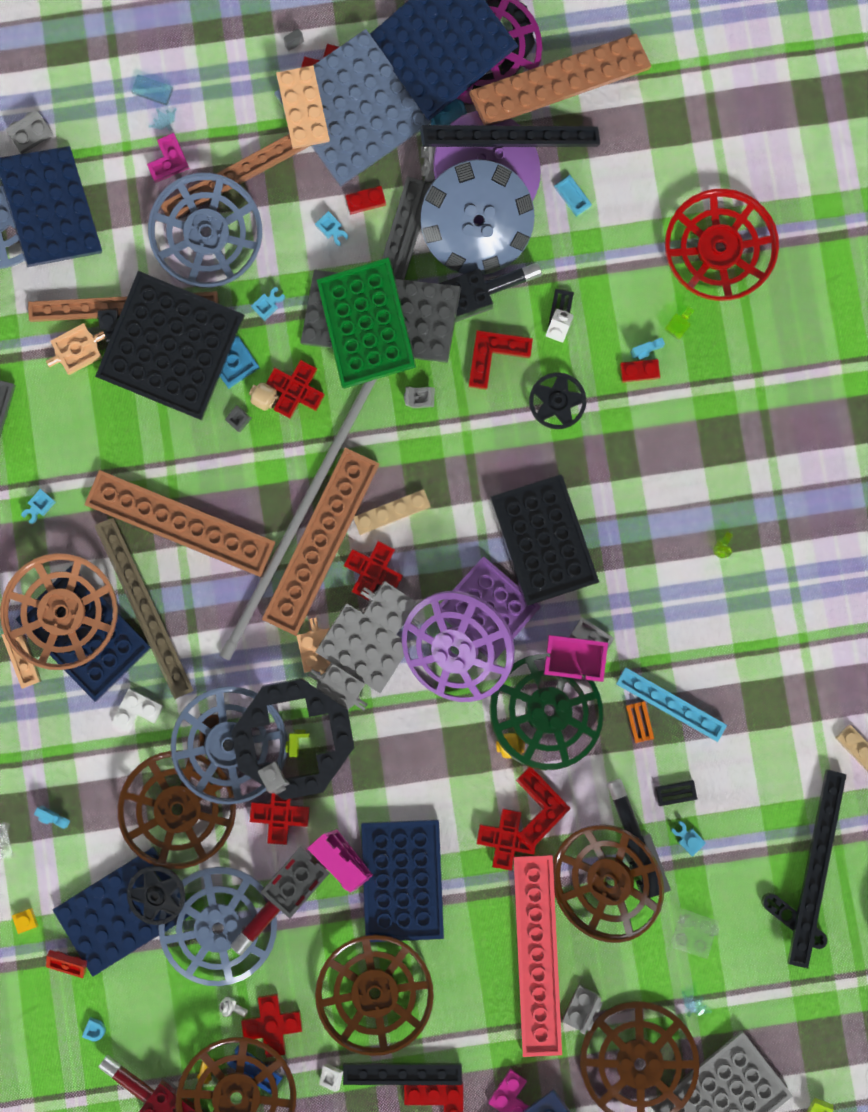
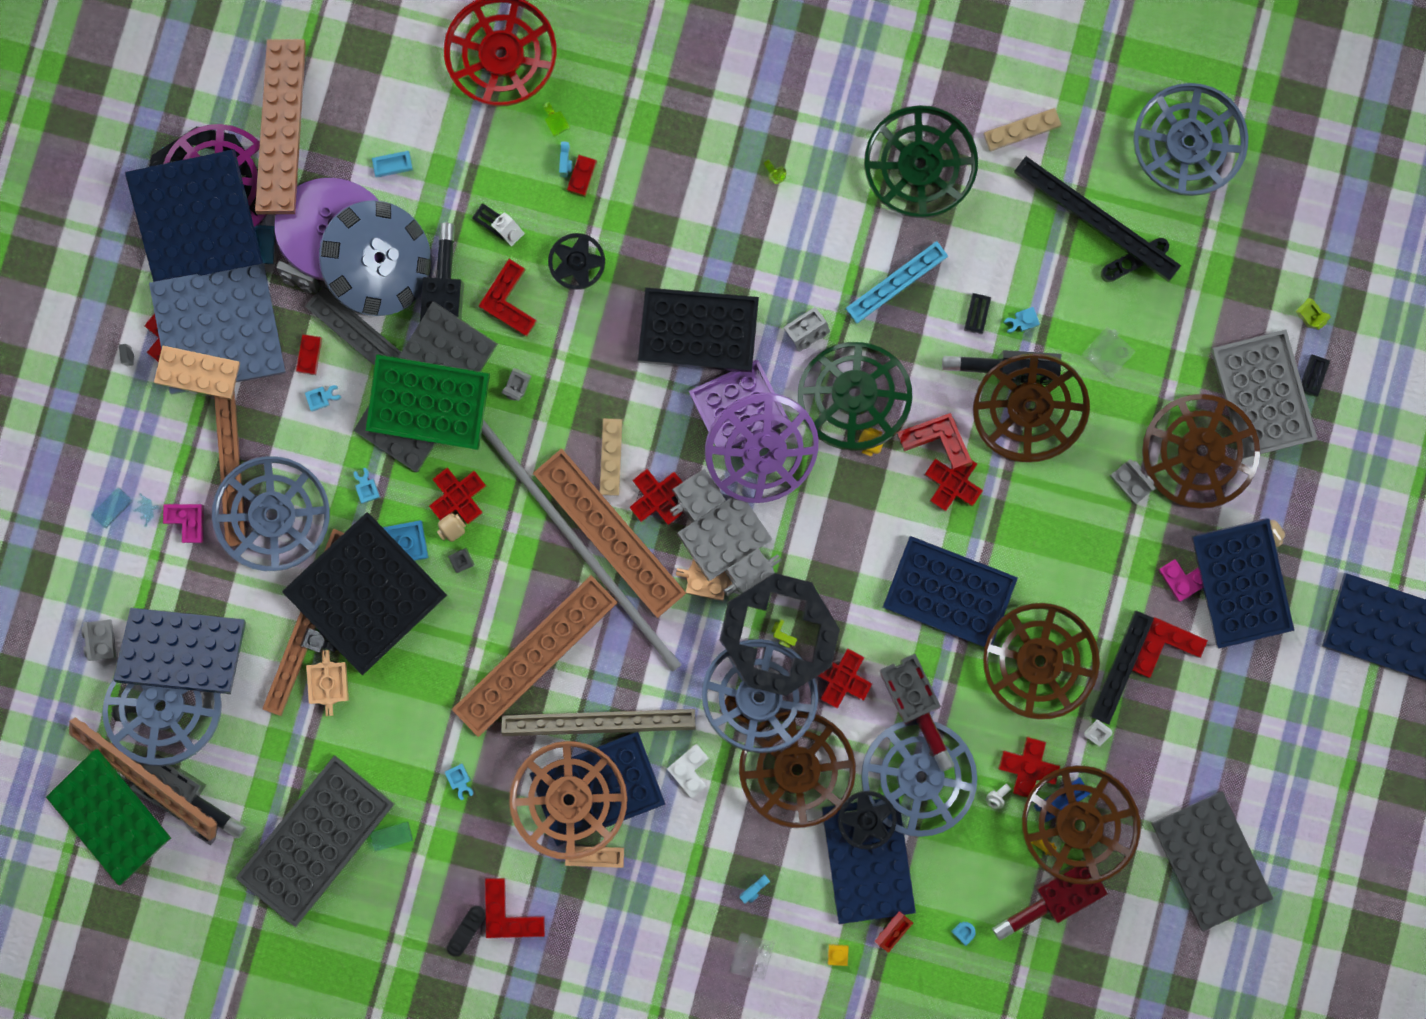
camera: 65 degrees left, 0 degrees up
(273, 778) = (808, 666): light grey bracket -> none
(340, 860) = (908, 639): dark pink wedge -> none
(509, 136) = (313, 195): black plate -> none
(537, 956) = (1068, 500): coral plate -> none
(574, 657) = (817, 346): dark pink piece -> none
(647, 721) = (901, 317): orange tile -> none
(695, 1005) = (1172, 380): clear light blue piece -> none
(806, 681) = (928, 153): none -> dark green dish

